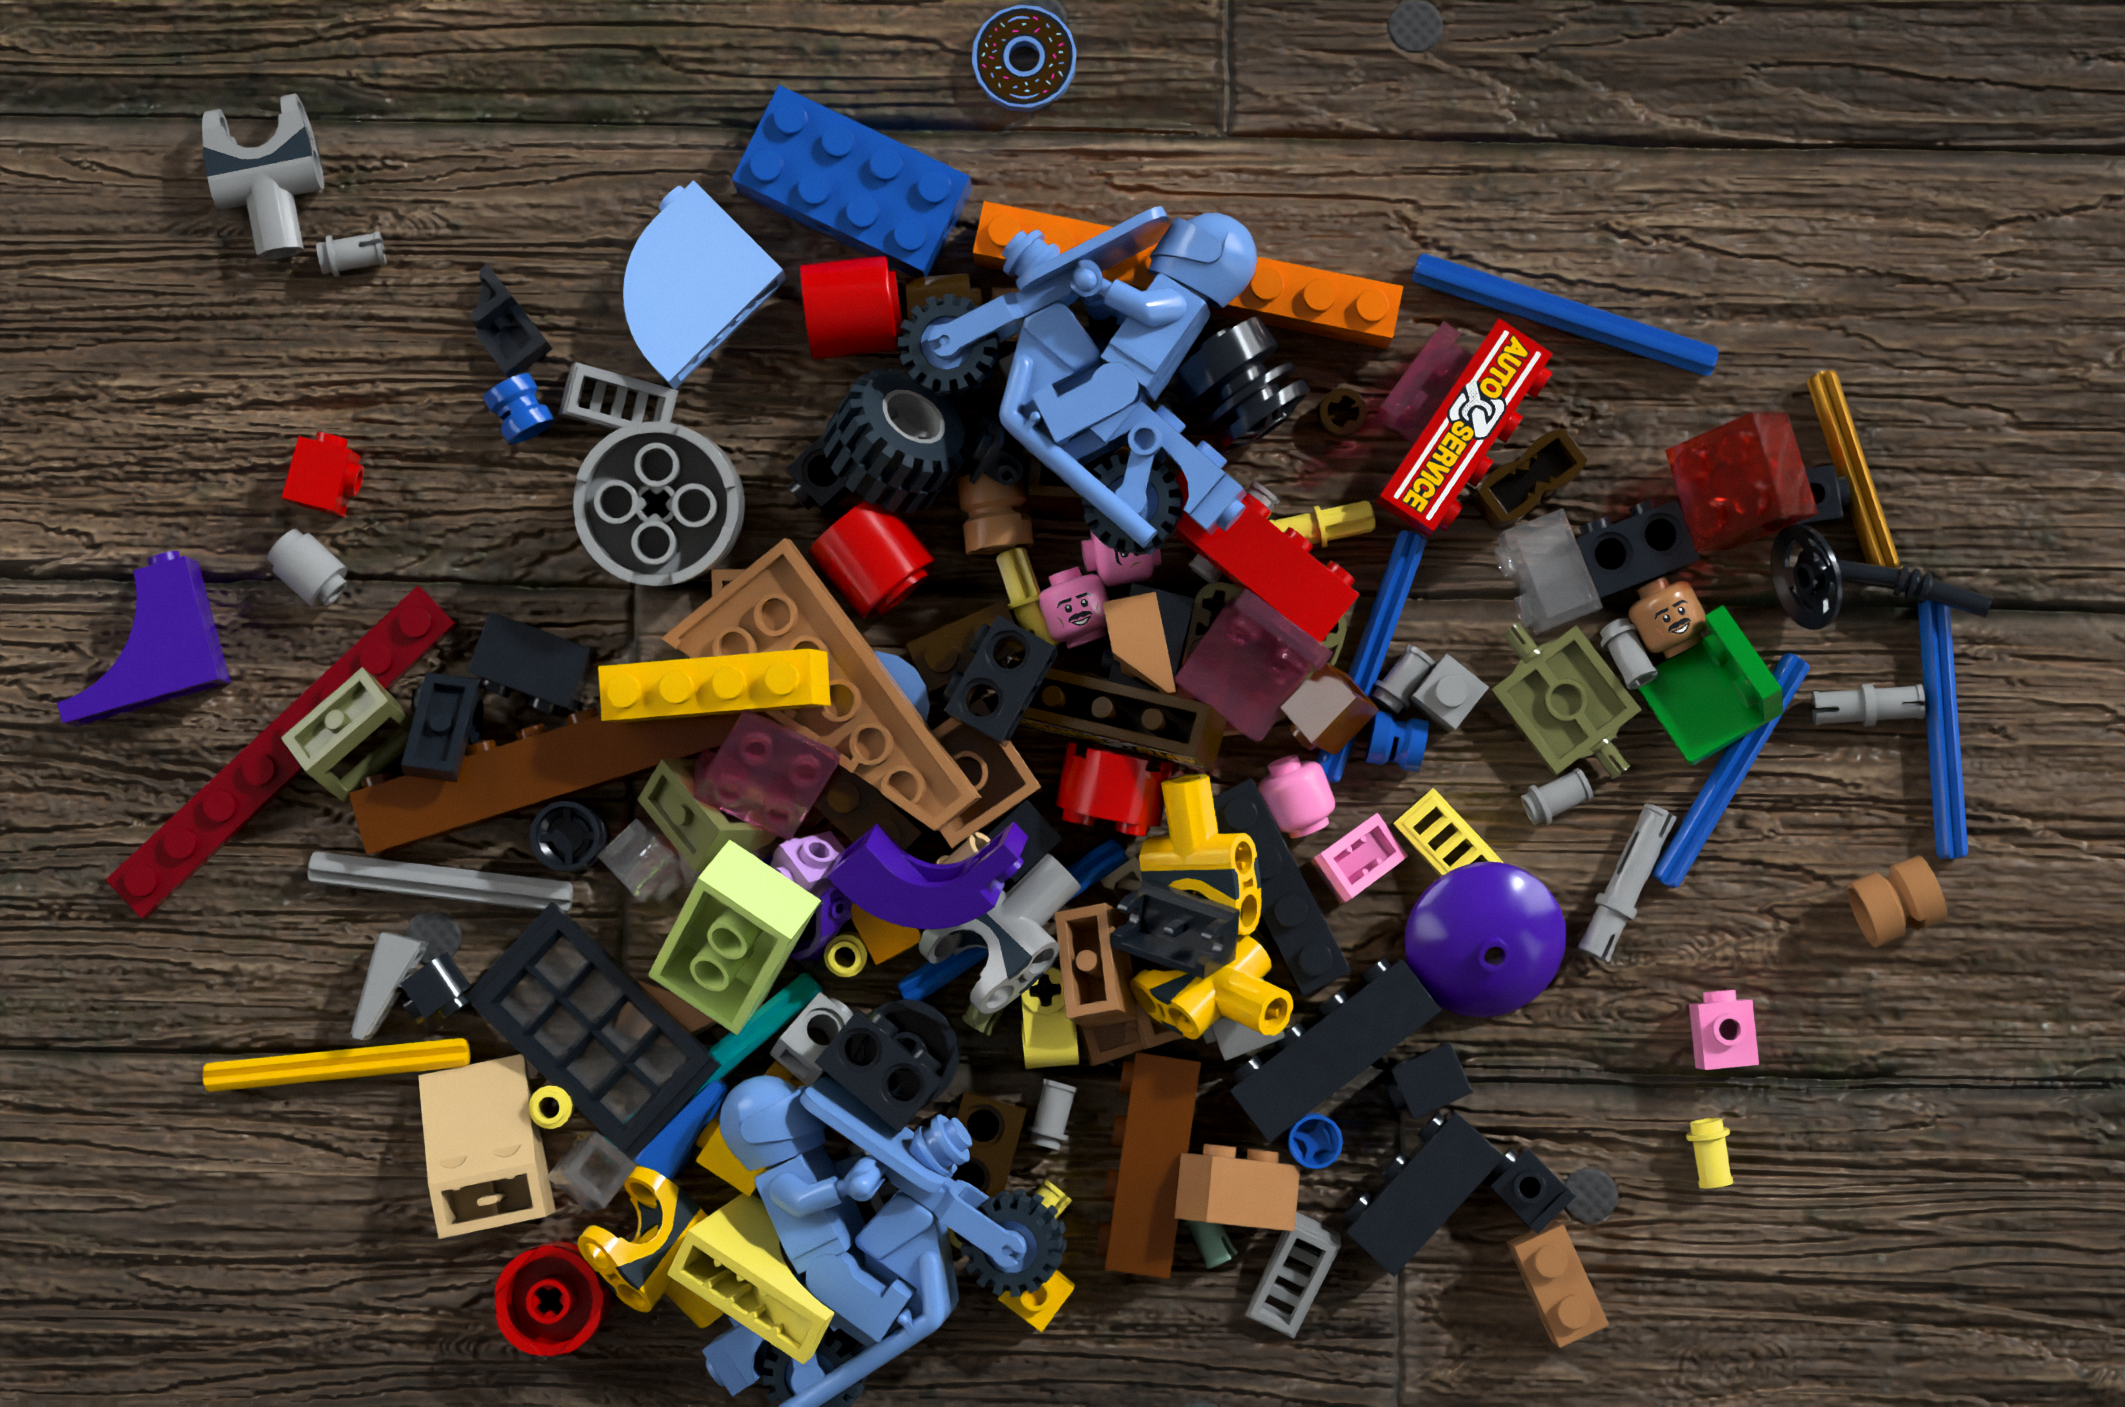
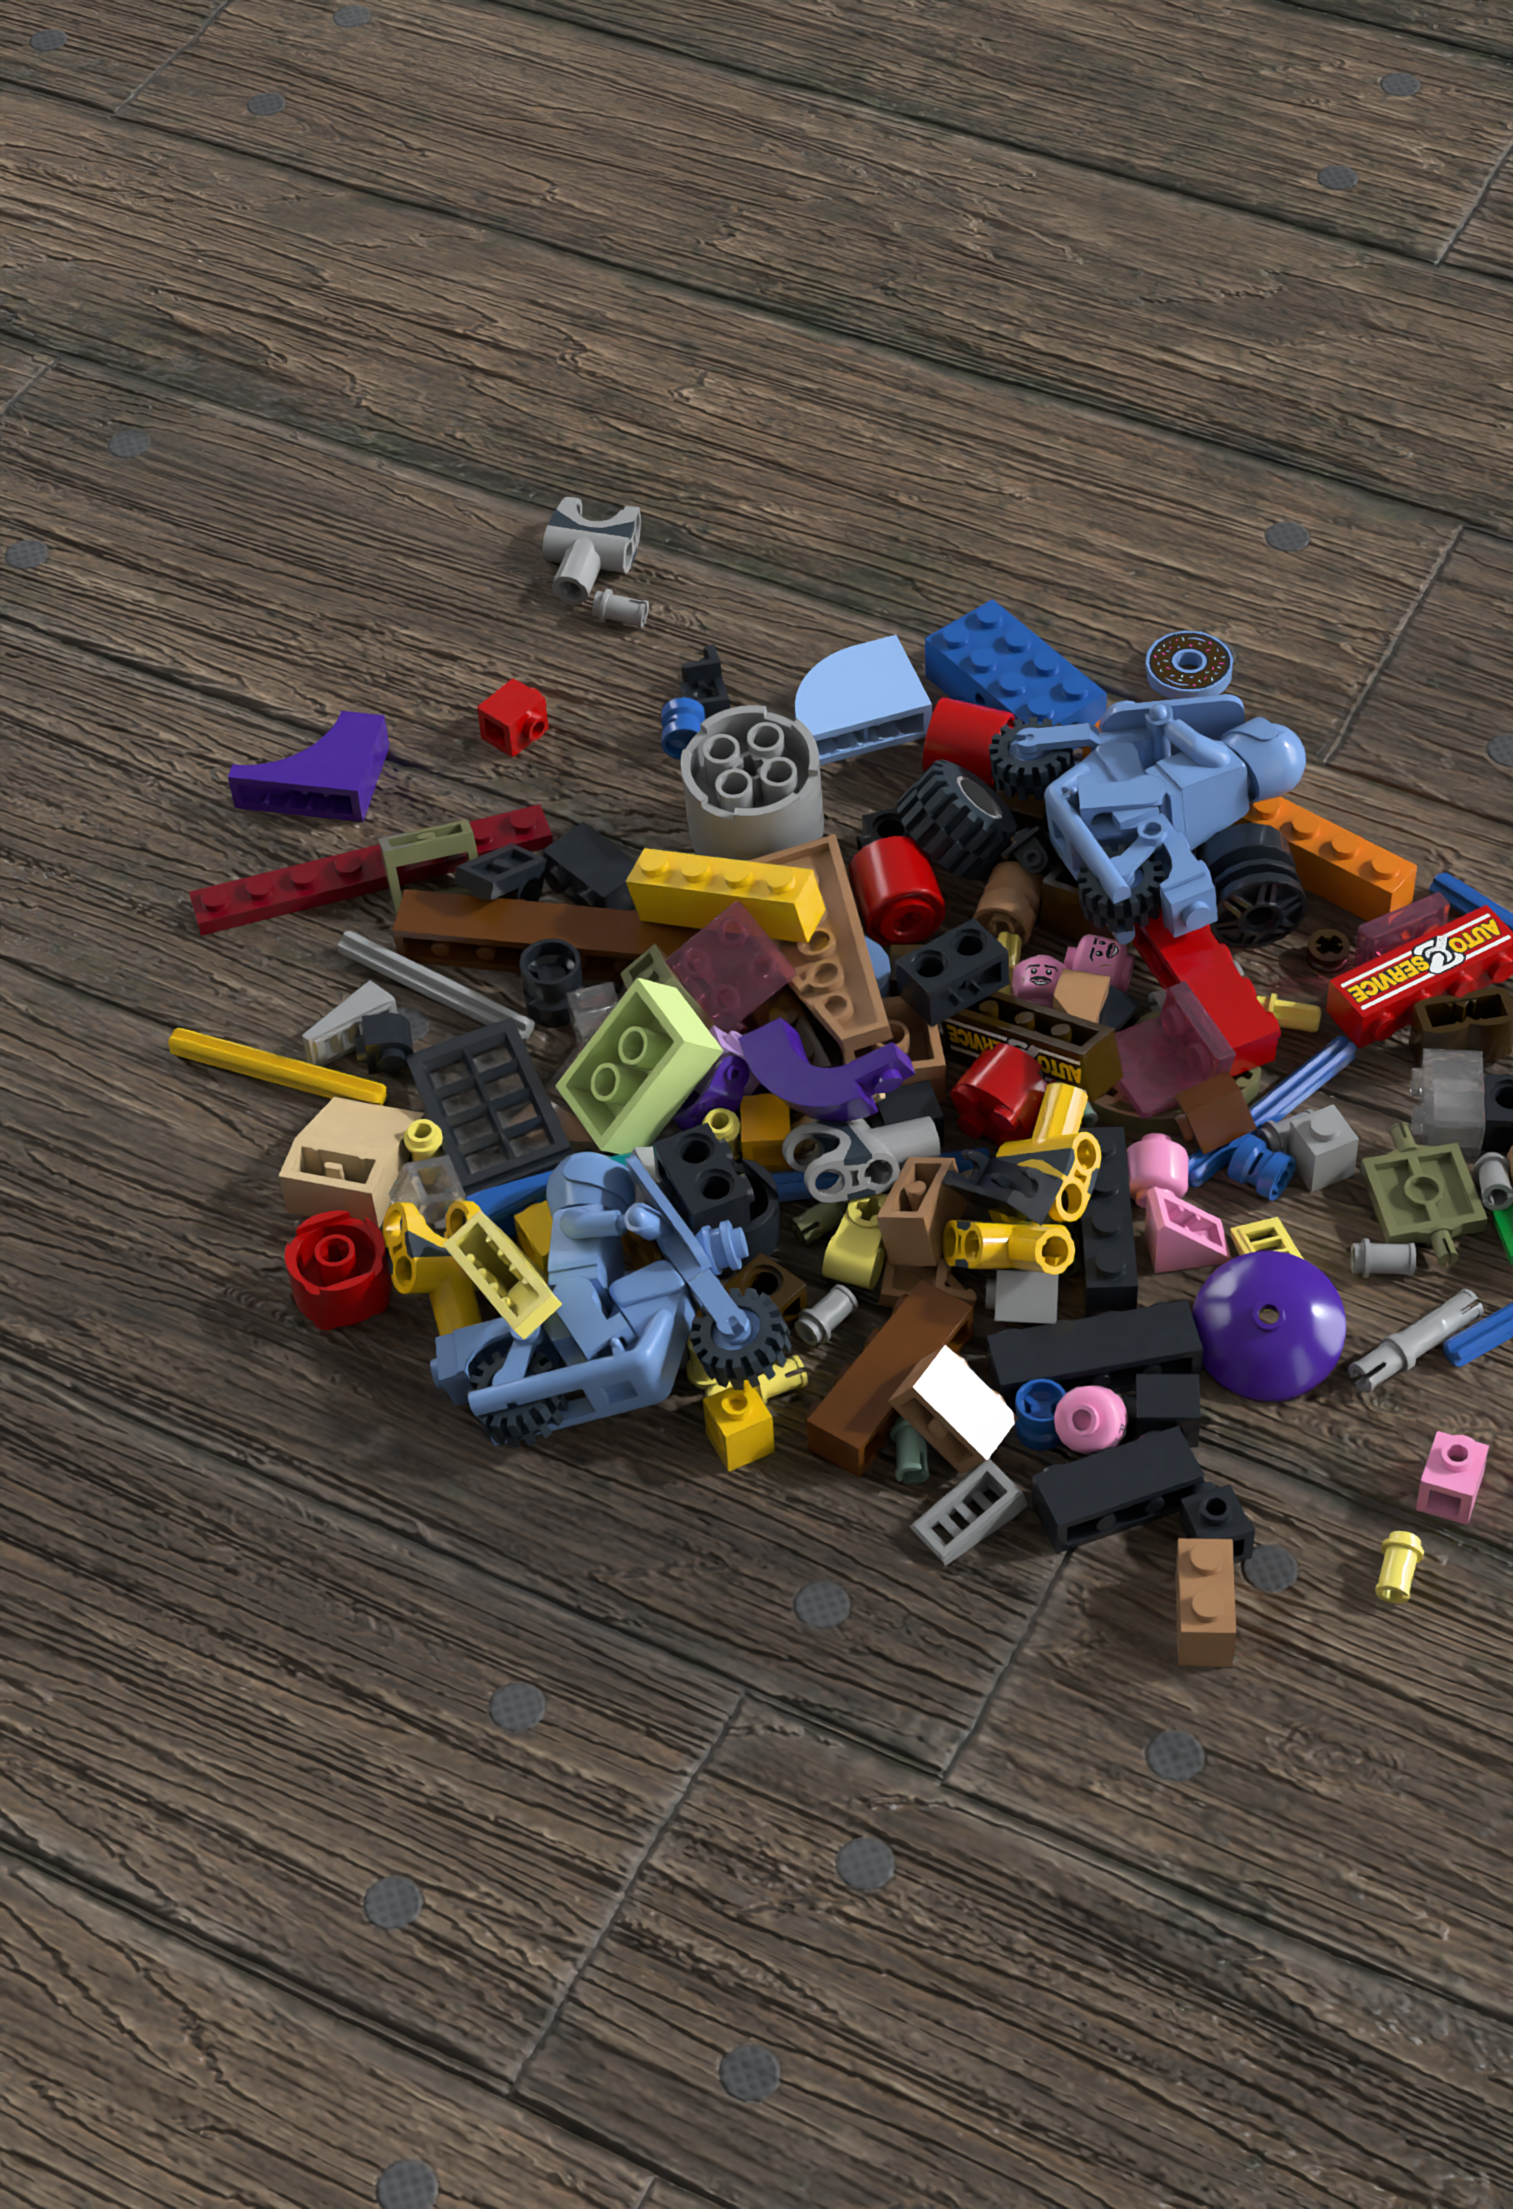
camera: 25 degrees right, 35 degrees down
(308, 568) = (466, 764): light grey brick -> none
(1368, 1135) = (1090, 1419): none -> bright pink head

